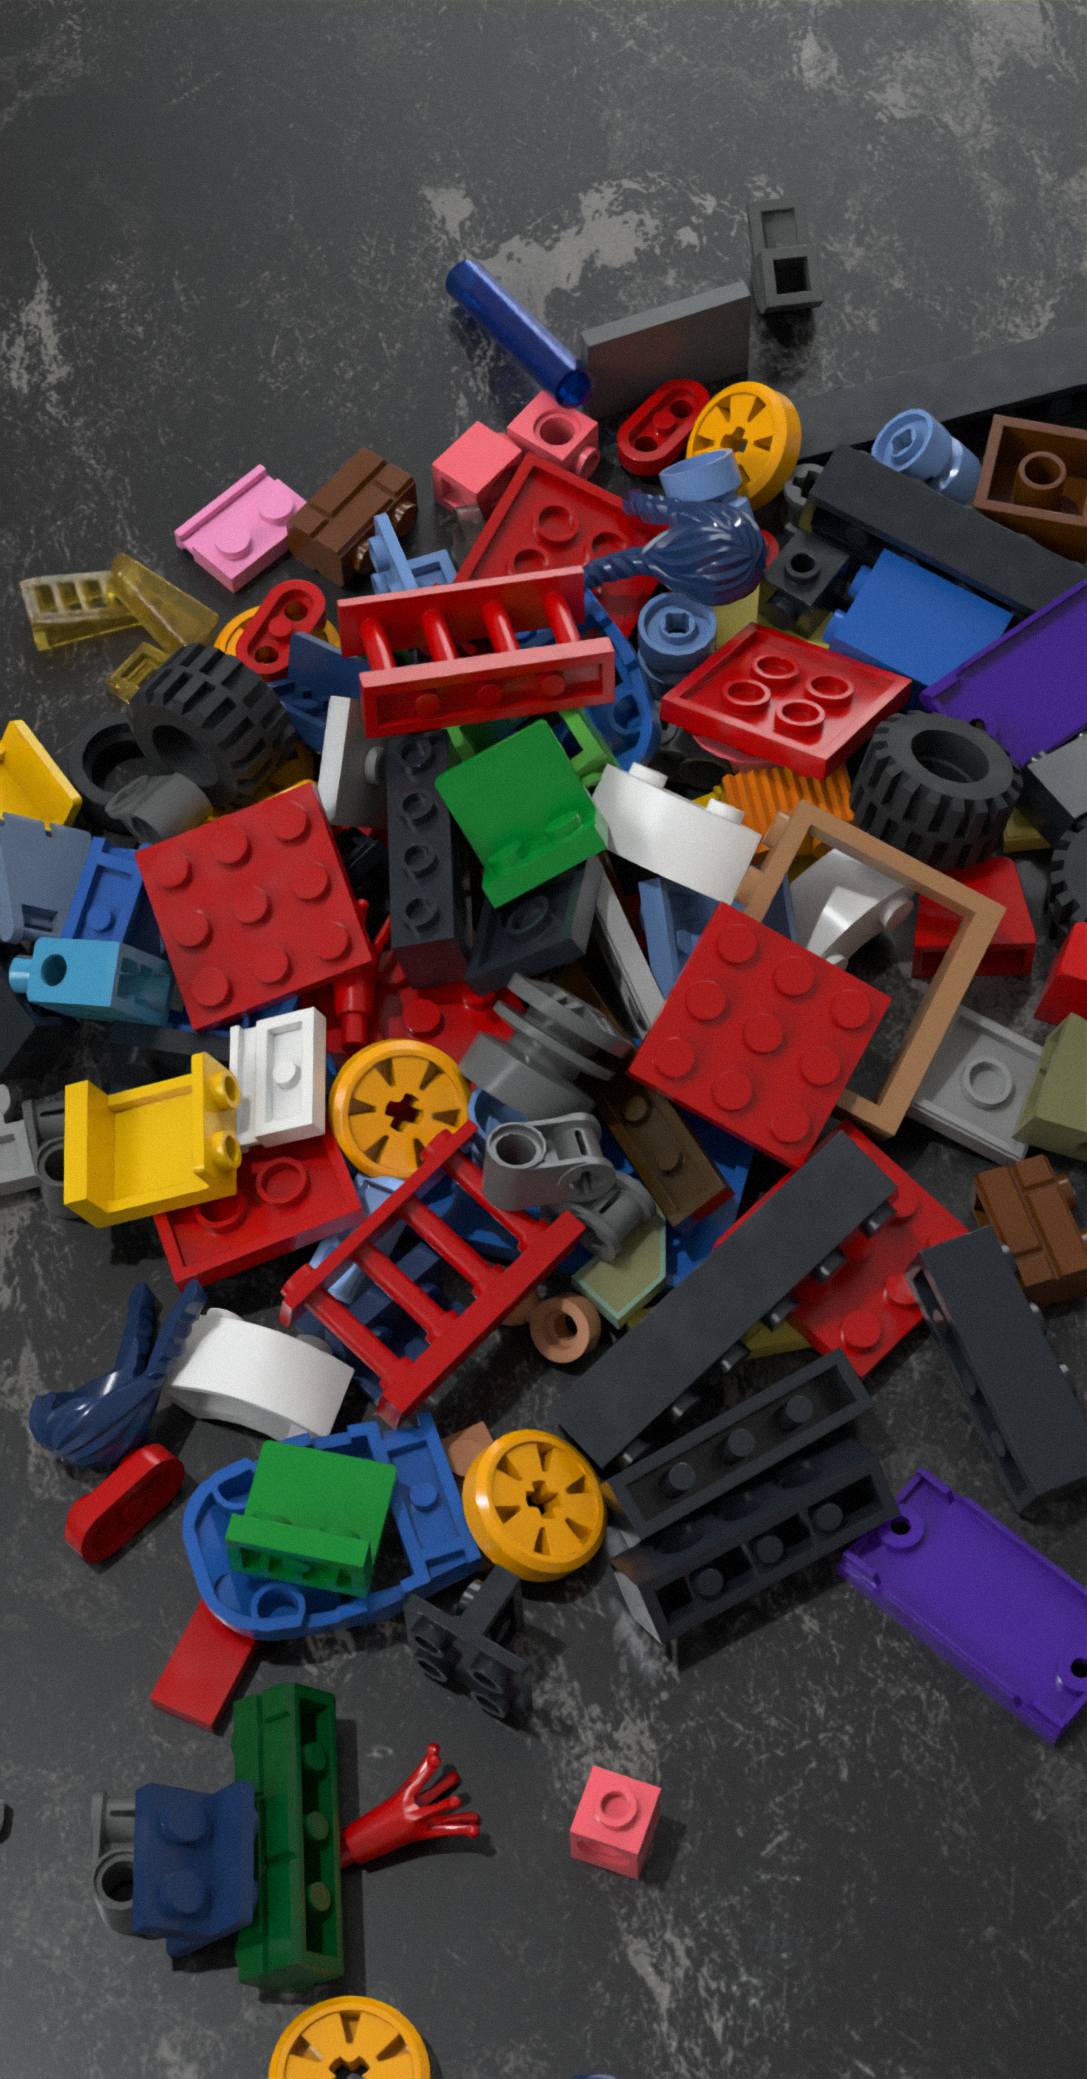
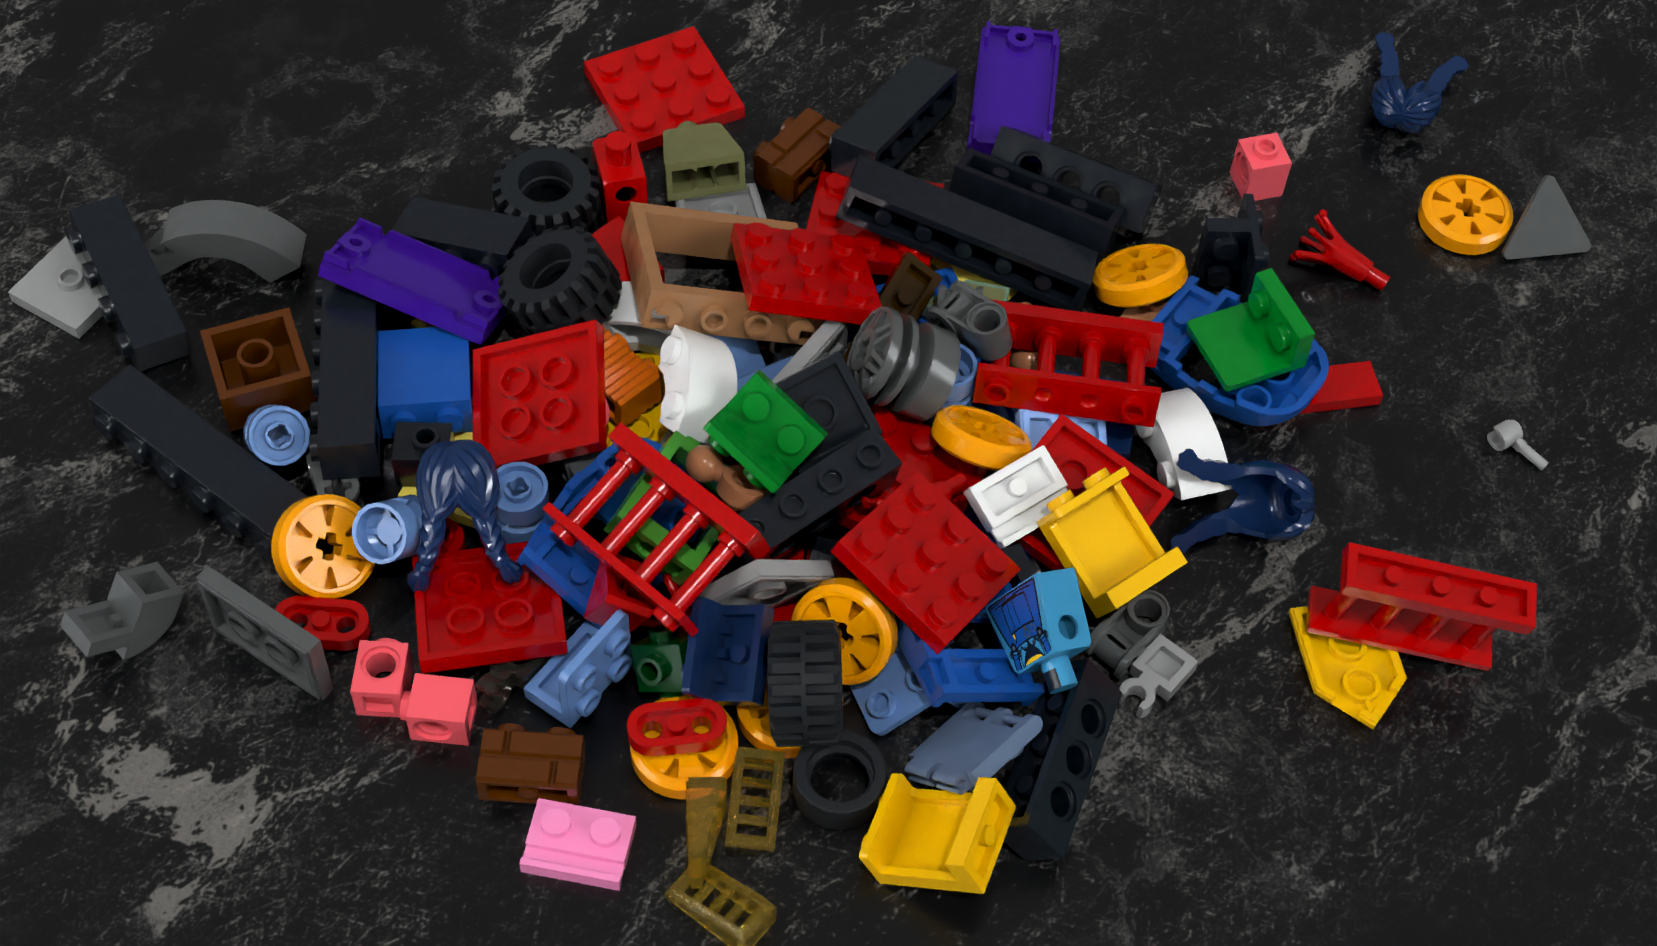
camera: 130 degrees left, 5 degrees down
(112, 1856) = (1465, 351): dark grey piece -> none
(123, 1502) = (1322, 468): red plate -> none
(159, 807) = (882, 690): dark grey piece -> none
(193, 1864) = (1448, 302): dark blue bracket -> none
(290, 1754) = (1394, 286): dark green brick -> none
(520, 334) = (299, 741): clear blue piece -> none

